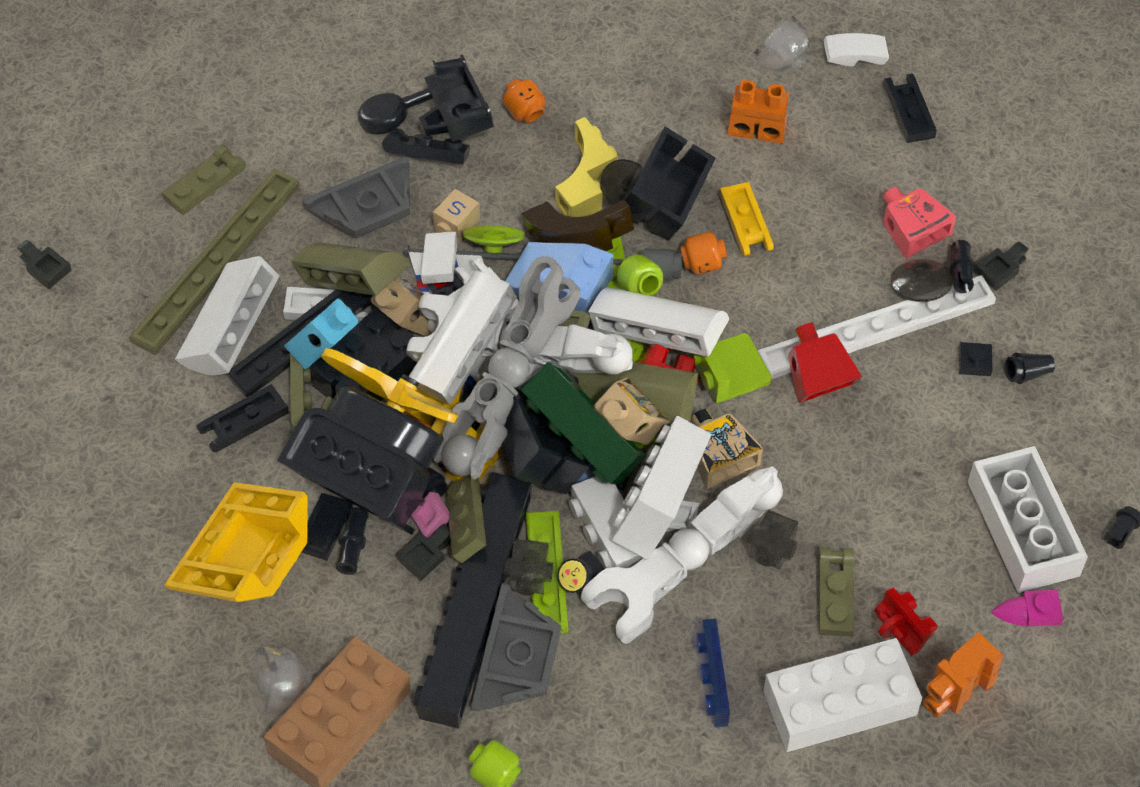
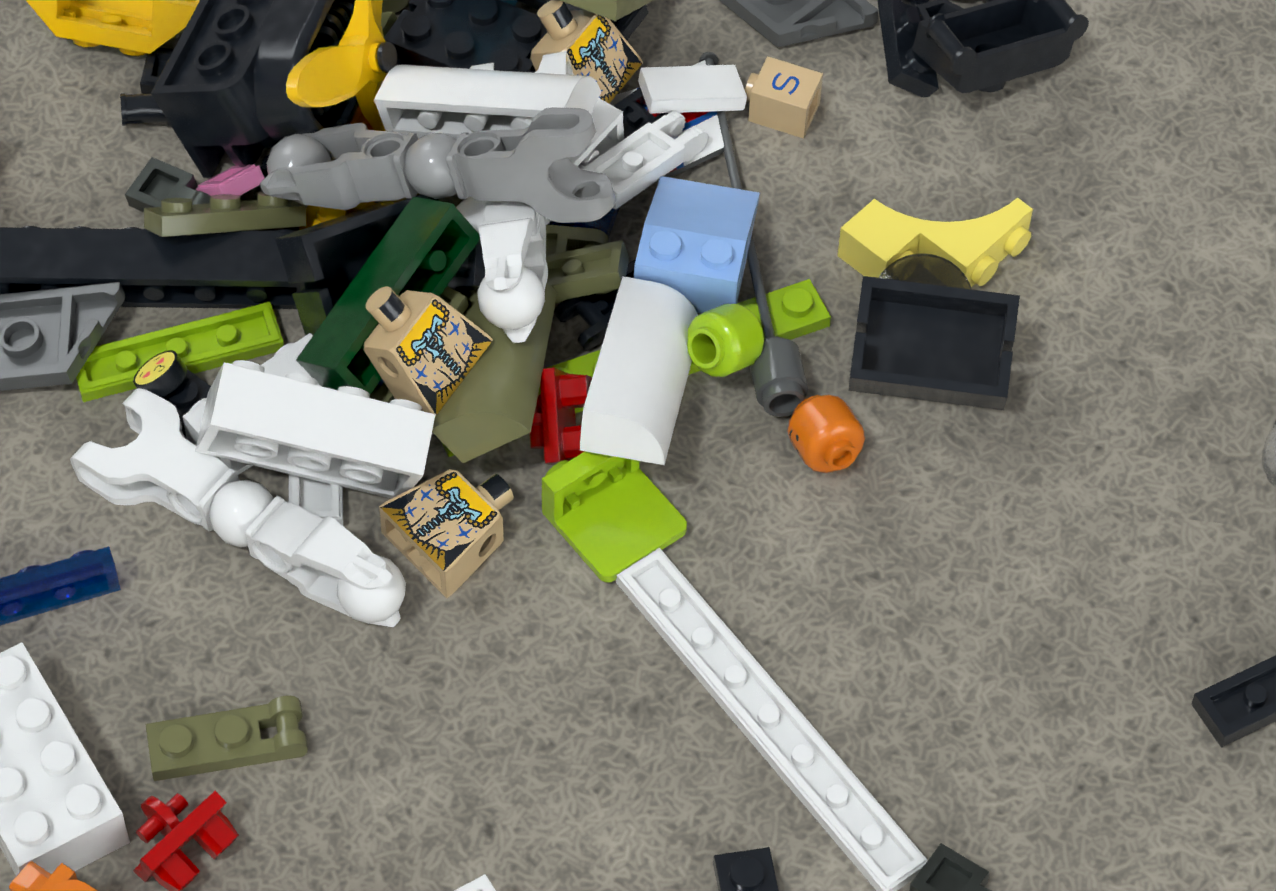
camera: 75 degrees right, 0 degrees up
(493, 237) = (761, 148): lime dish -> none
(524, 100) = (1049, 133): orange head -> none
(529, 567) = (149, 306): clear smoke brick -> none
(597, 230) = (786, 249): dark brown arch -> none
(745, 217) = (925, 483): yellow hinge -> none
(759, 107) = (1142, 451): orange hips -> none
(773, 540) = (285, 624): clear smoke brick -> none
(820, 364) = (643, 631): red torso -> none
(916, 220) = (1006, 734): coral torso -> none
(921, 280) = (887, 770): clear smoke dish -> none
(962, 266) = (929, 822): black pin -> none

